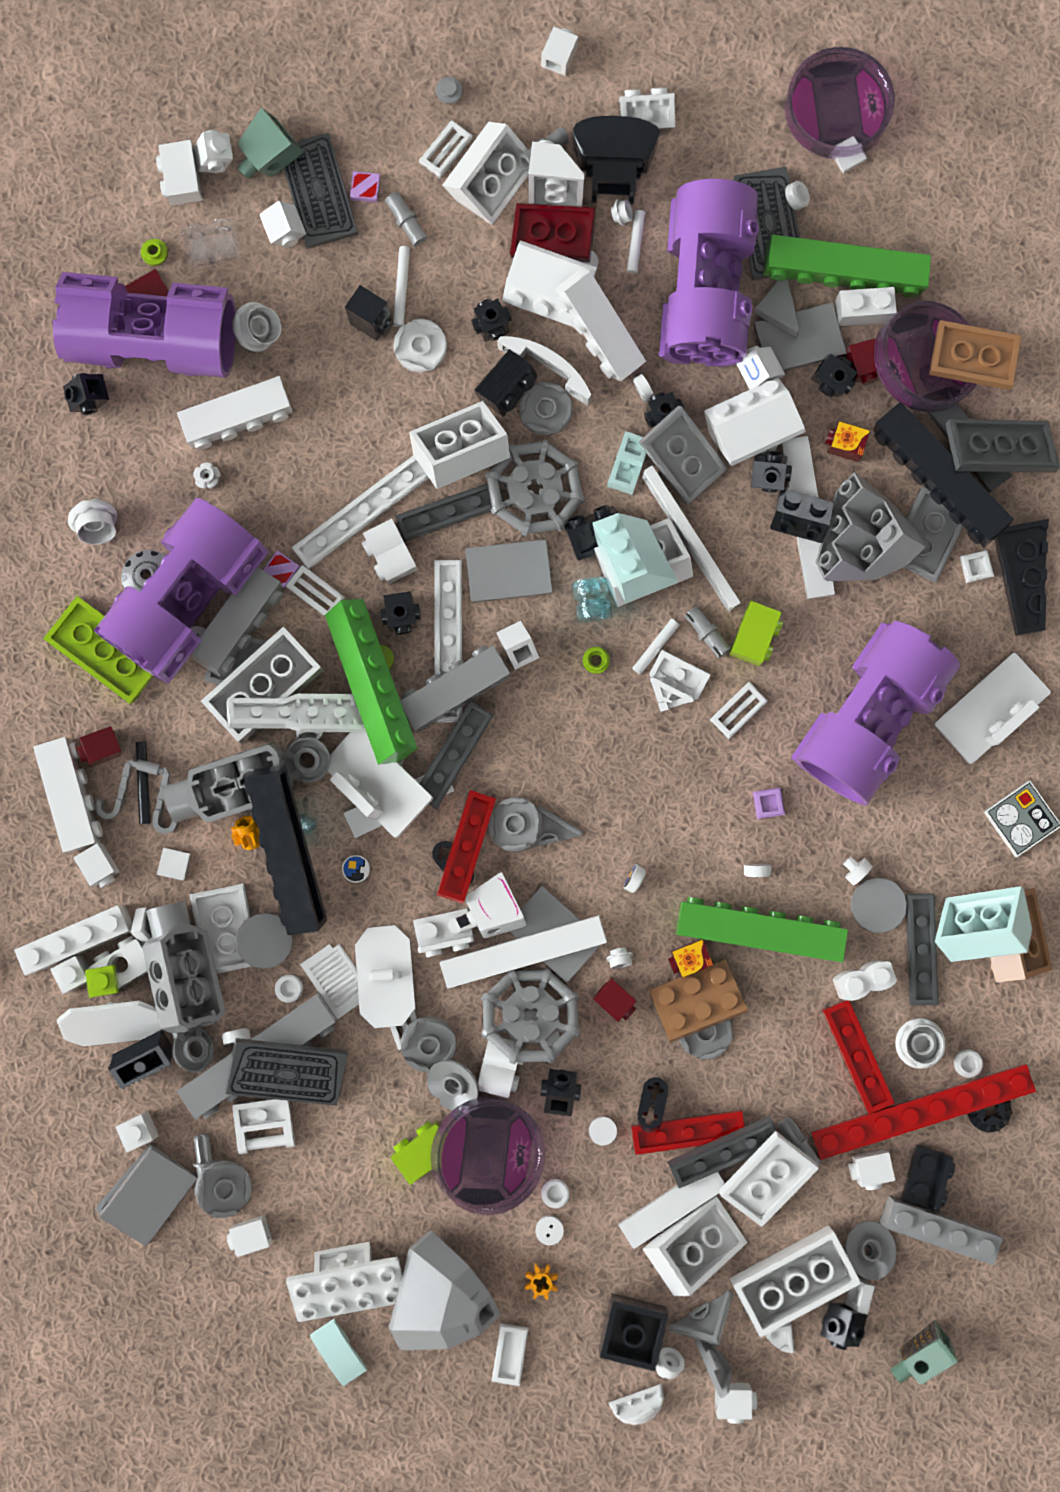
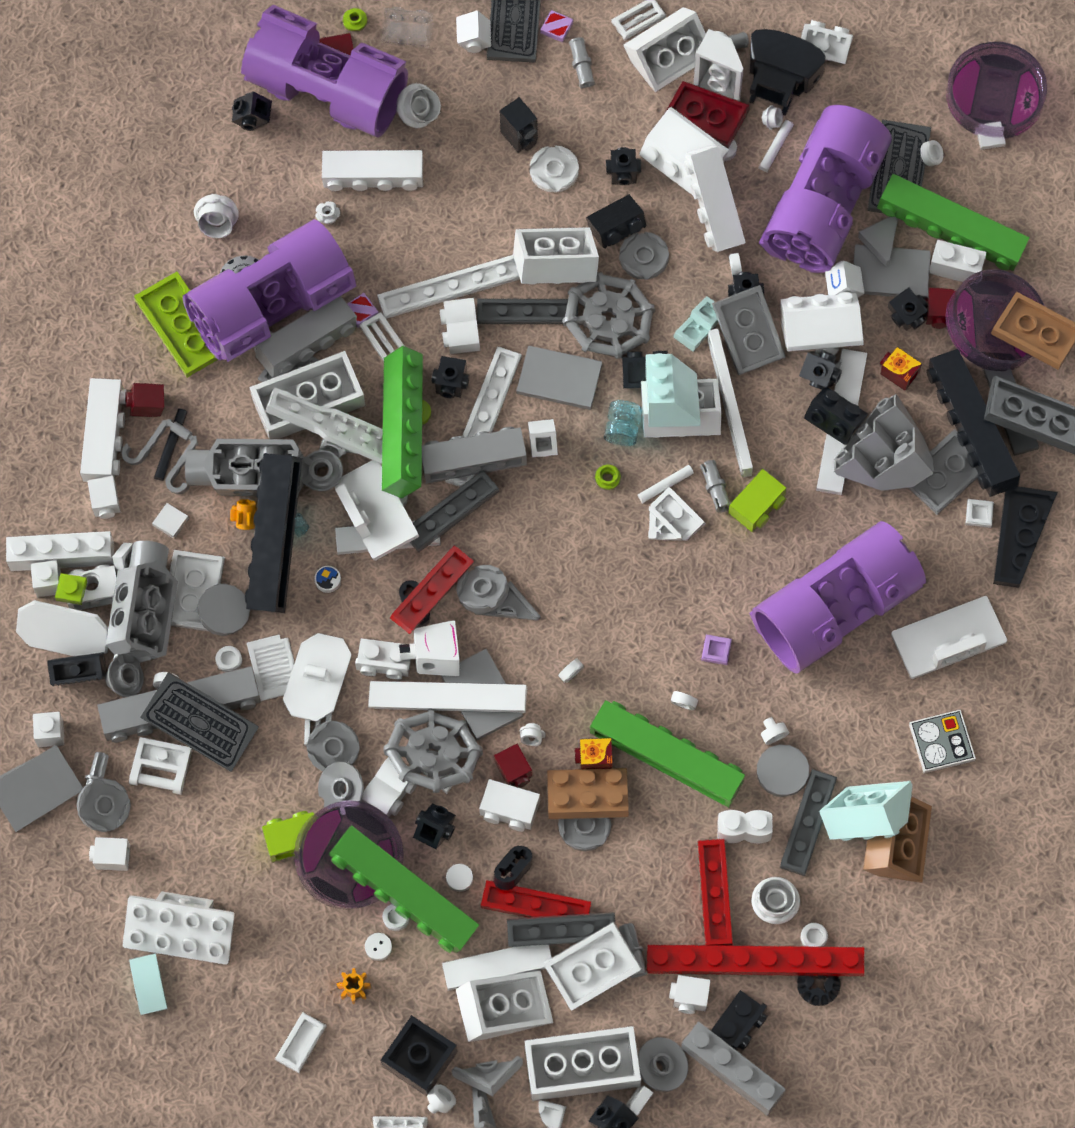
camera: 20 degrees right, 15 degrees down
(401, 286) = (557, 115): white bar -> none
(439, 1299) = (256, 963): light grey brick -> none
(555, 1173) = (403, 889): none -> bright green brick
(575, 386) = (664, 217): white slope -> none
(626, 1041) = (509, 805): none -> white brick
(722, 726) = (724, 570): white tile -> none

